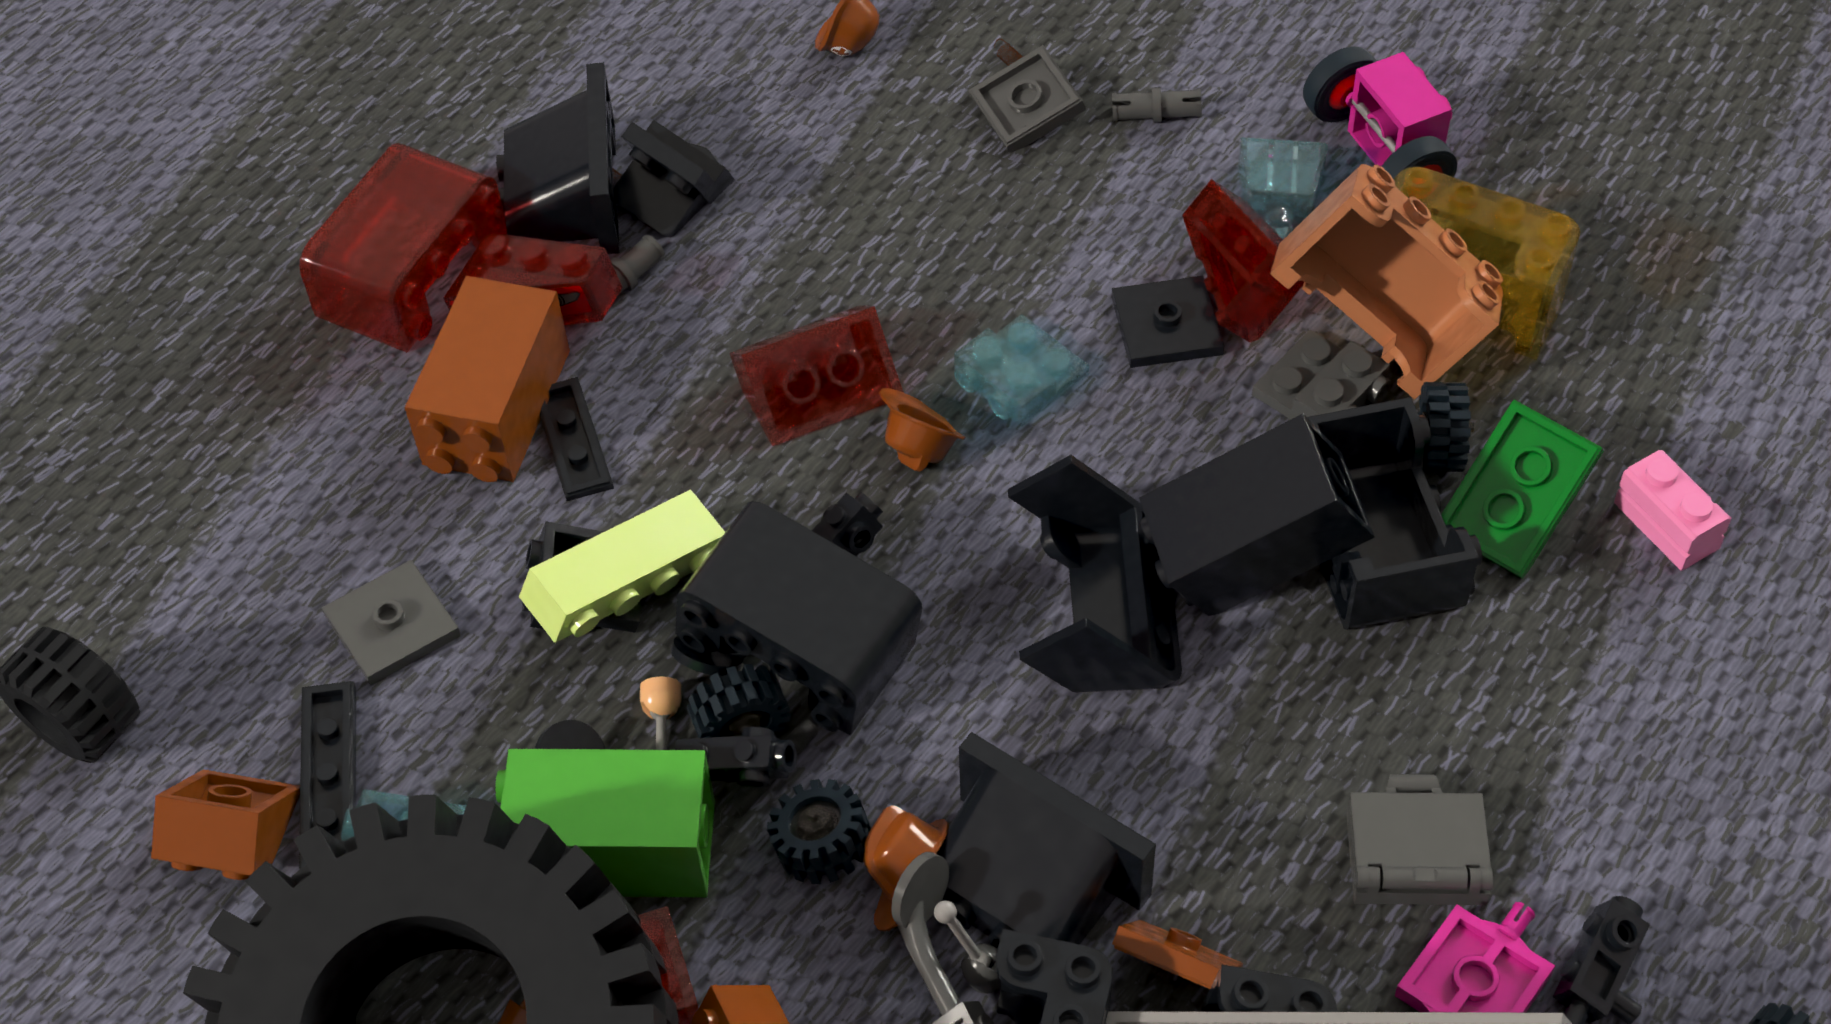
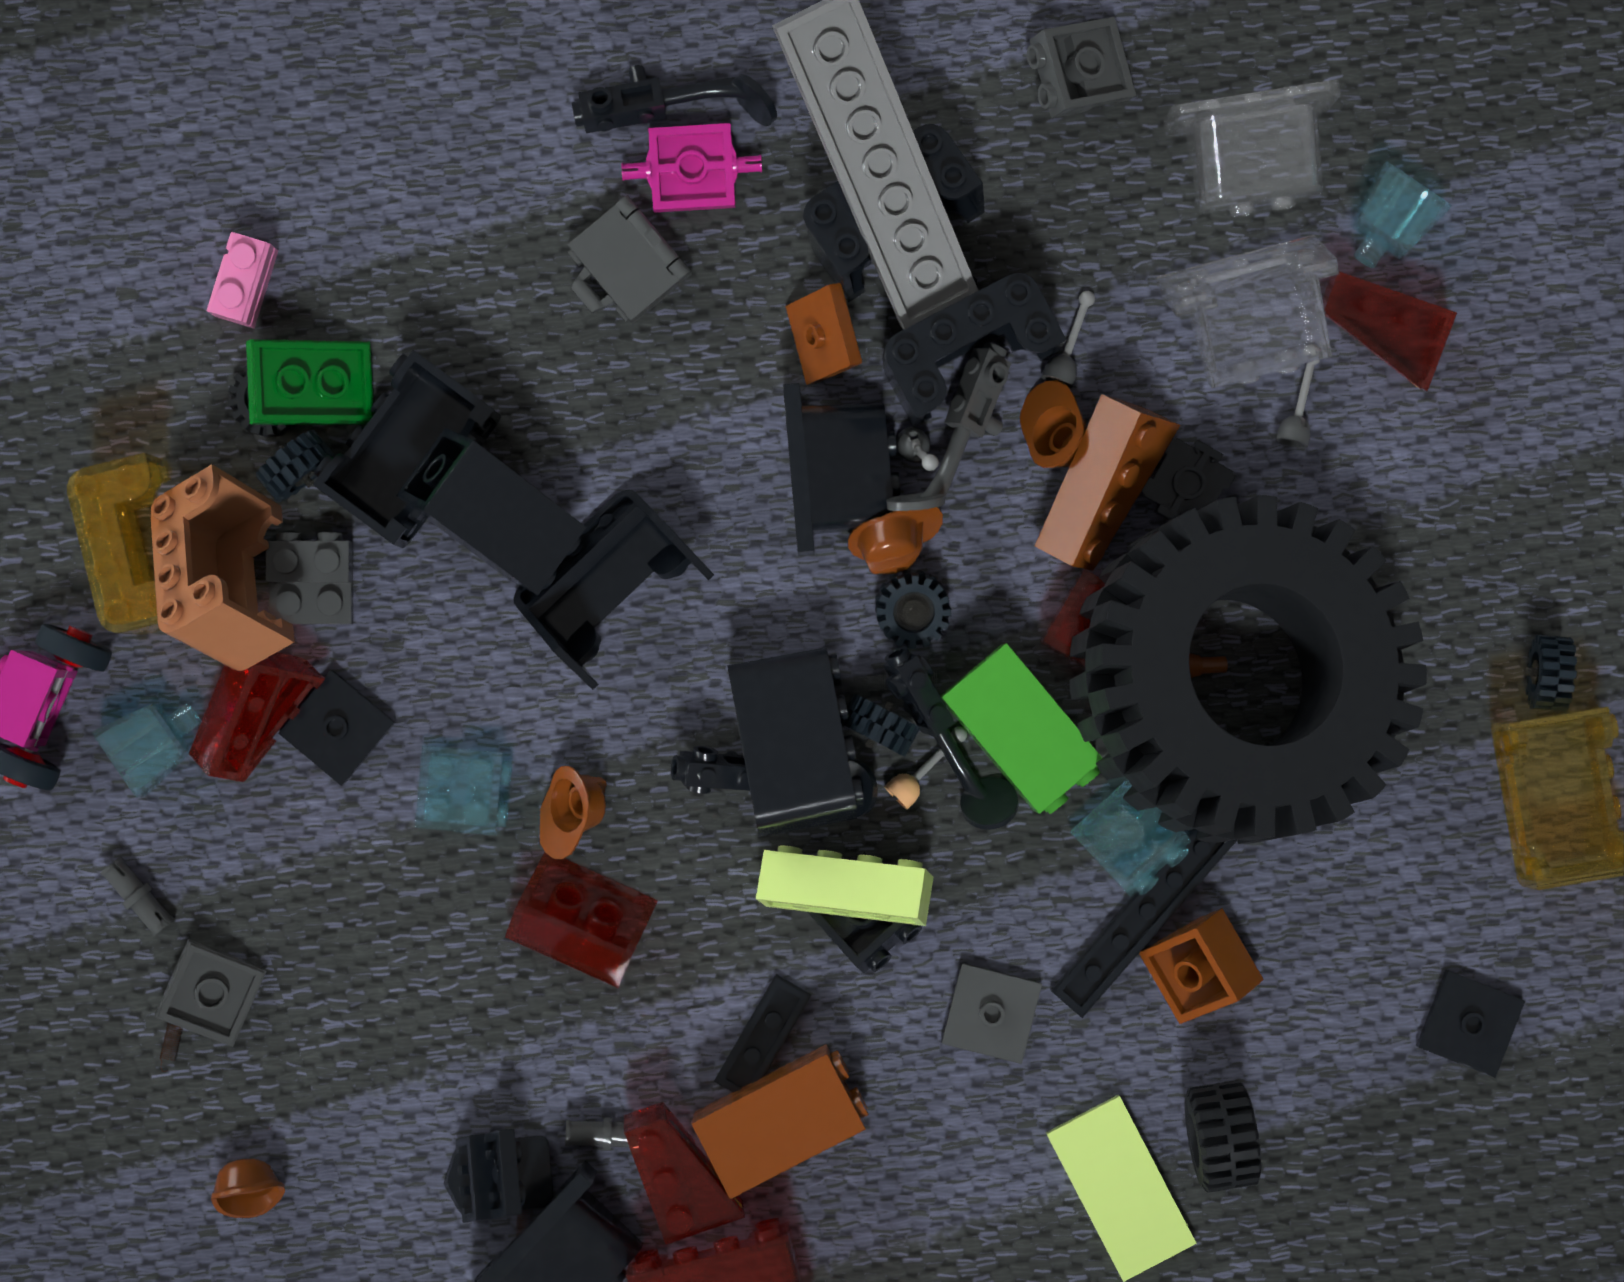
camera: 135 degrees left, 35 degrees up
(134, 607) = (1121, 1188): none -> yellowish green tile

